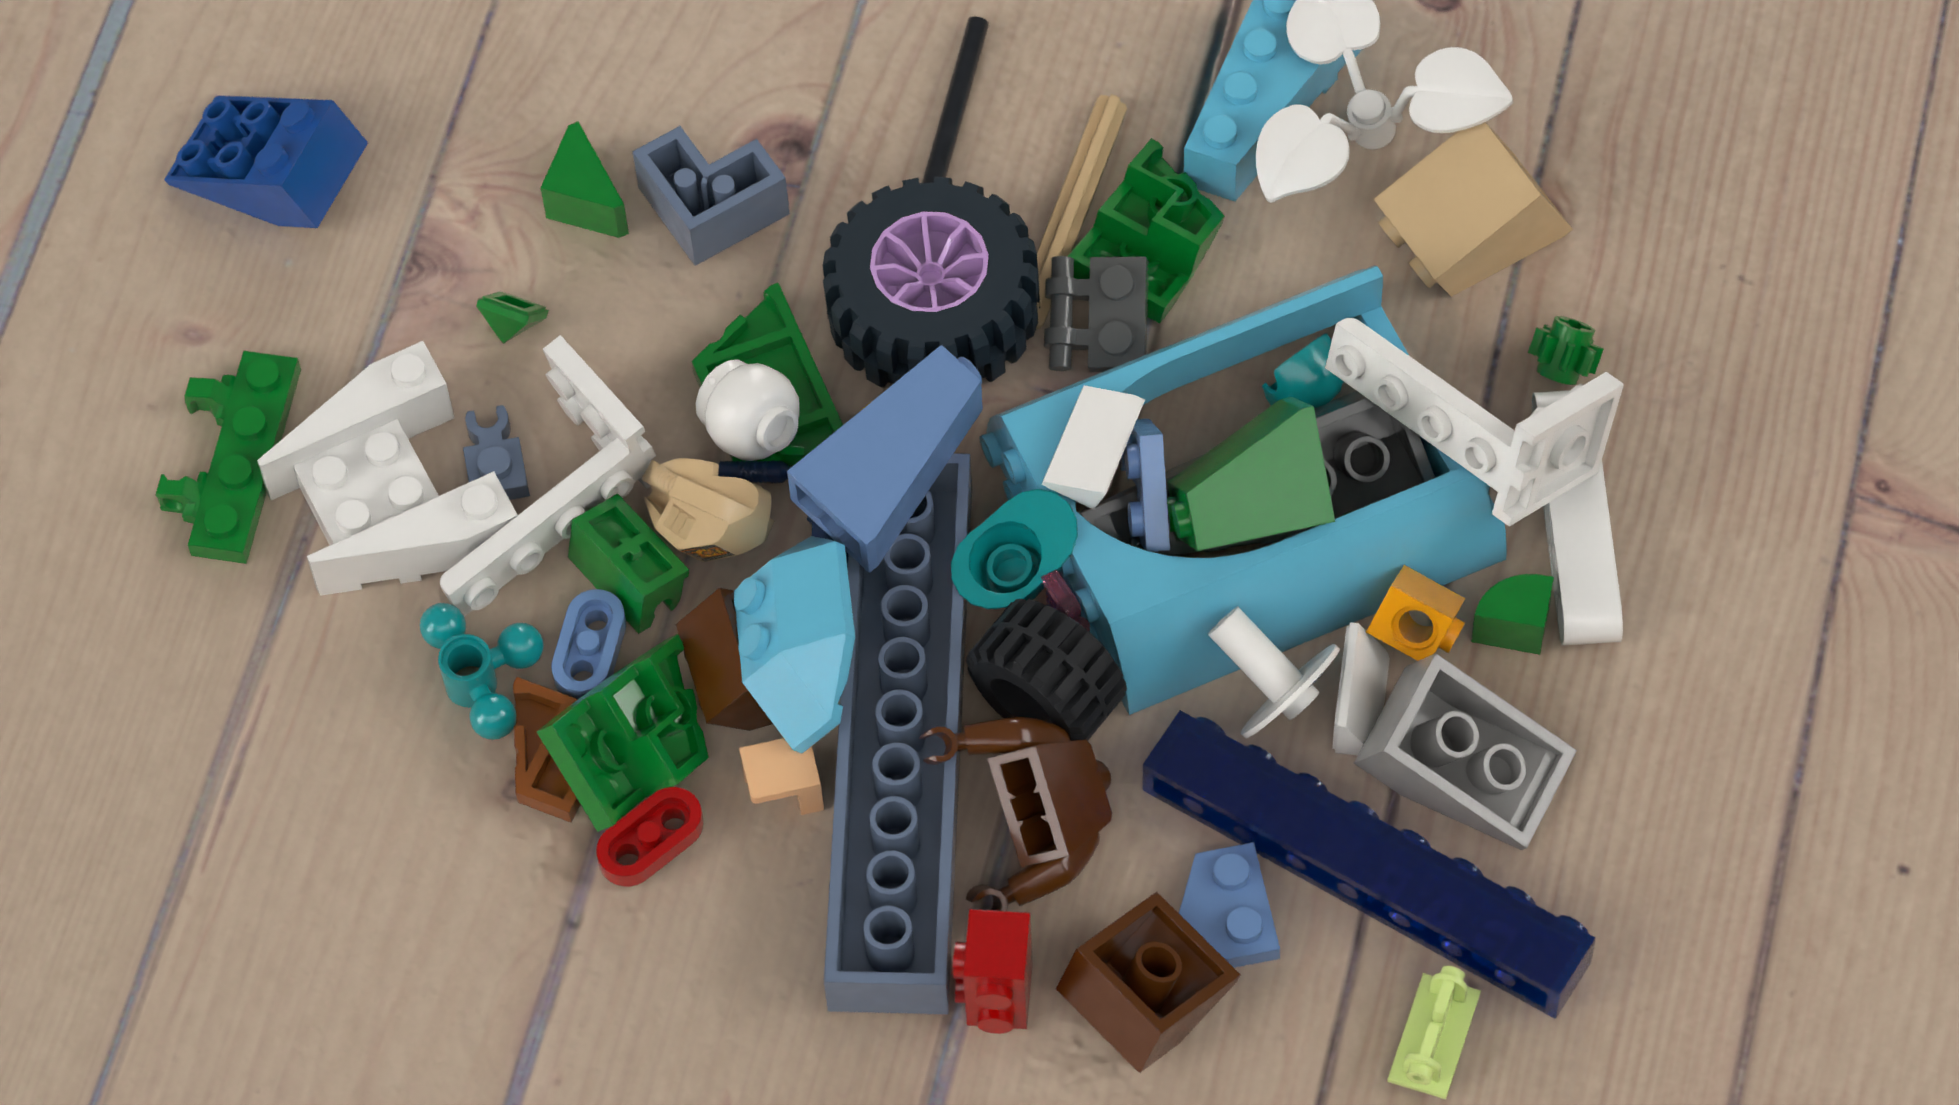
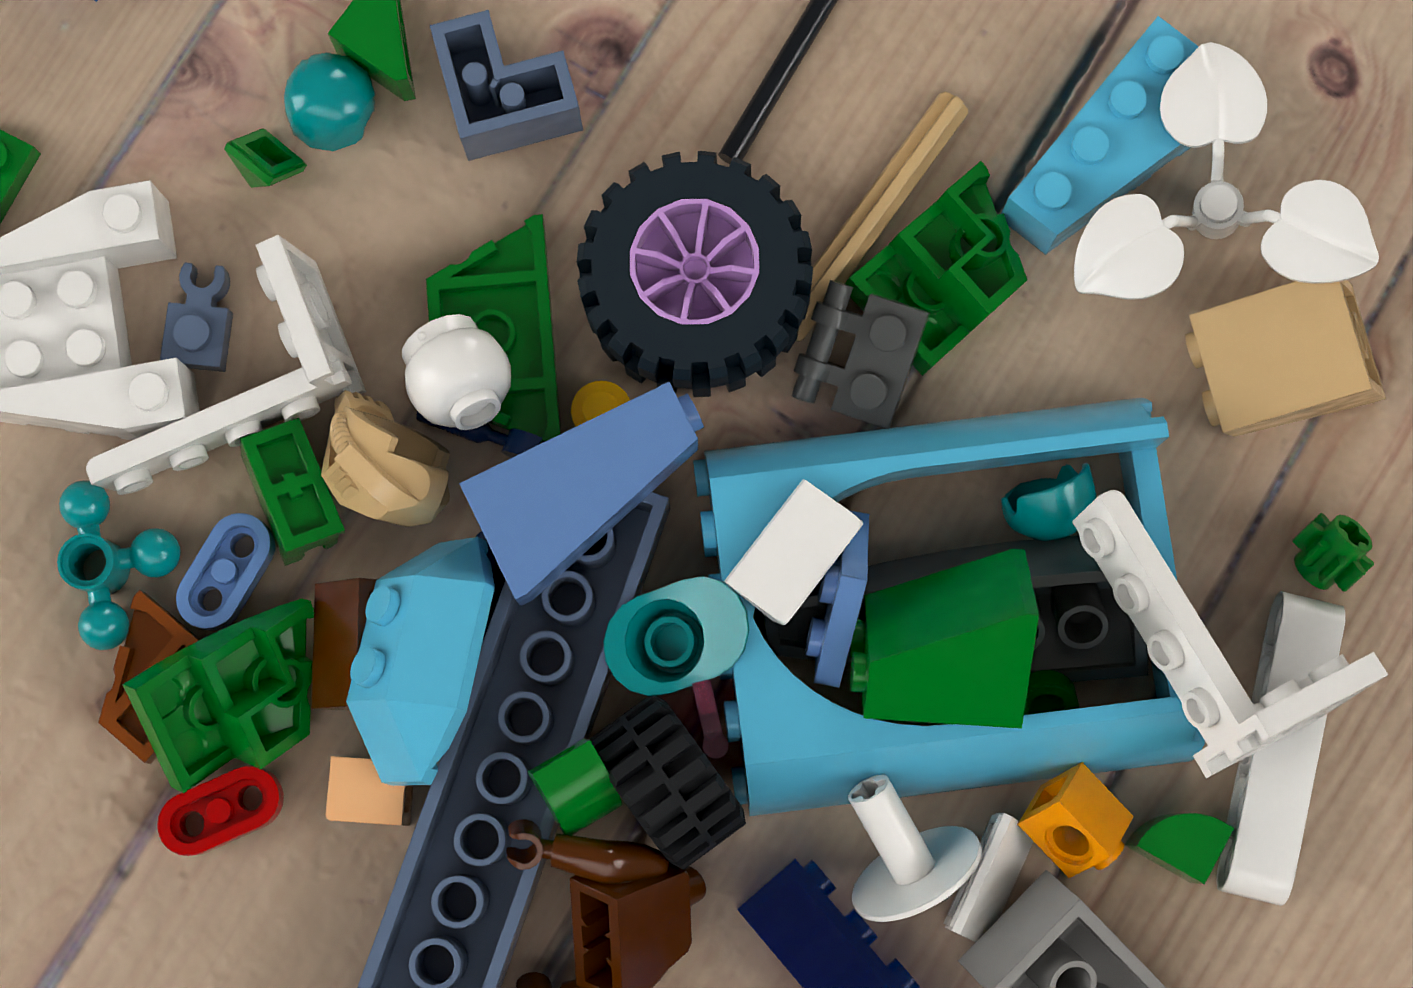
camera: 15 degrees right, 20 degrees up
(553, 252) = (329, 101): none -> teal hair
(967, 685) = (576, 787): none -> green brick

